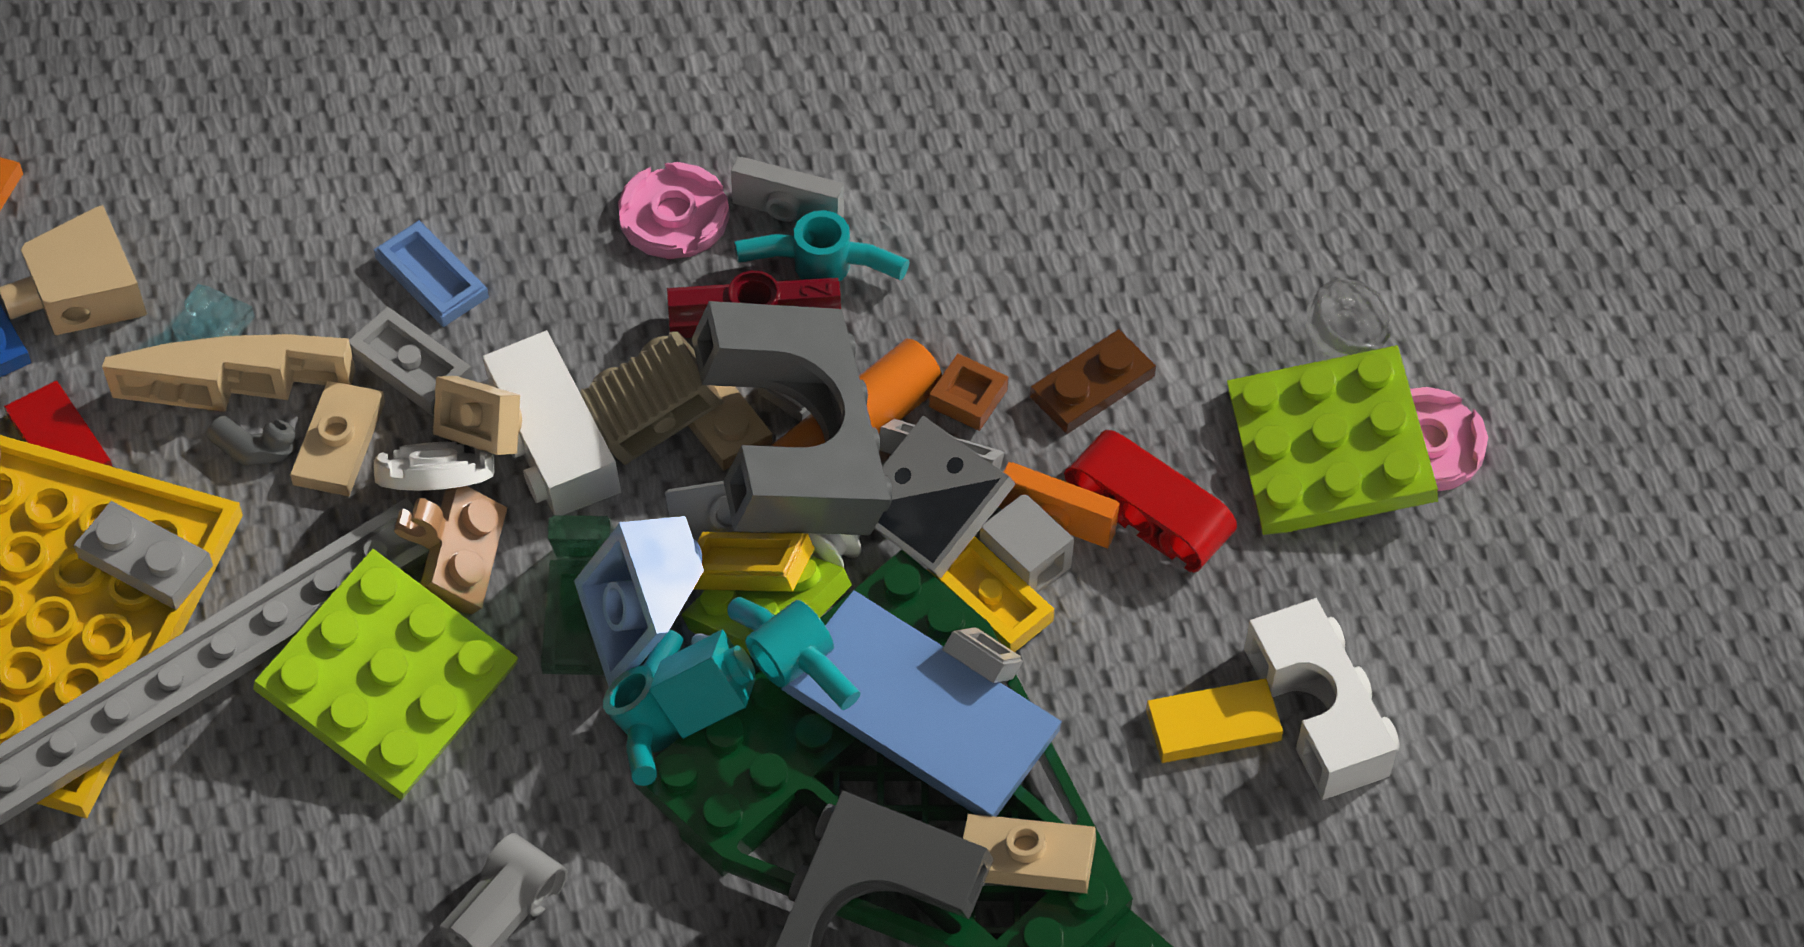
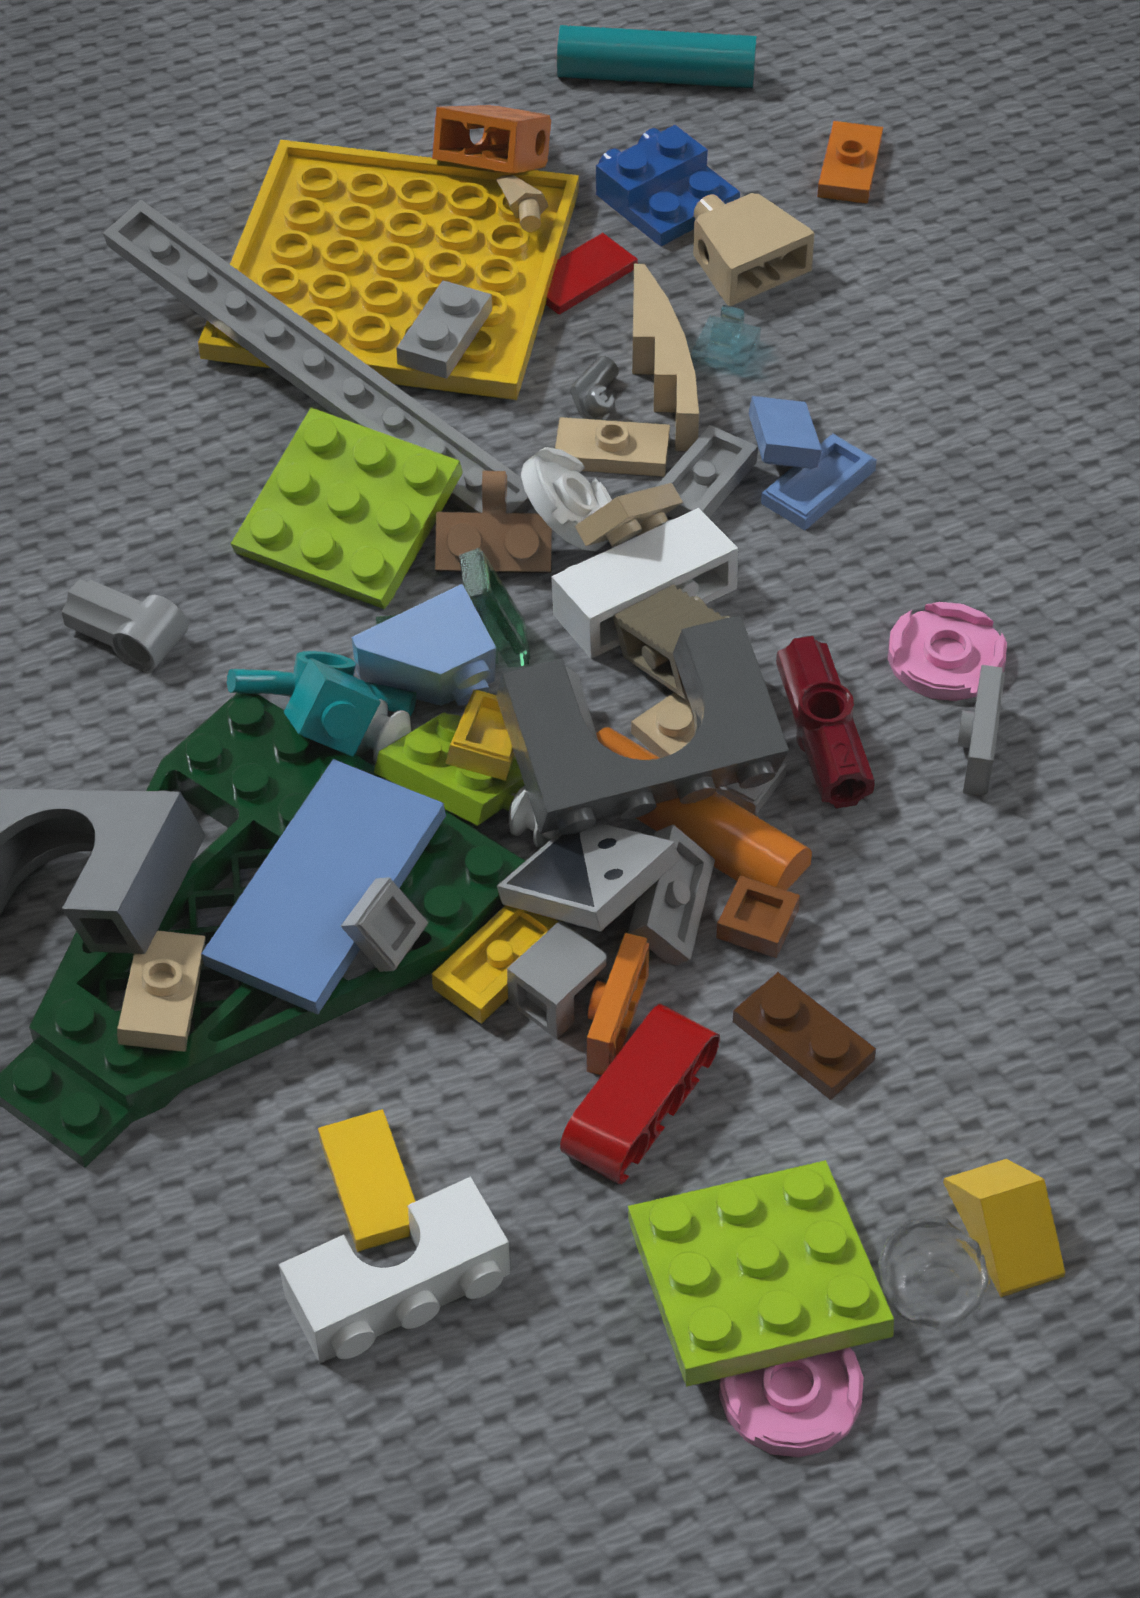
camera: 85 degrees right, 5 degrees down
(372, 282) = (784, 432): none -> medium blue tile
(793, 644) = (352, 744): teal piece -> none
(821, 249) = (913, 768): teal piece -> none
(1283, 269) = (1011, 1221): none -> yellow slope

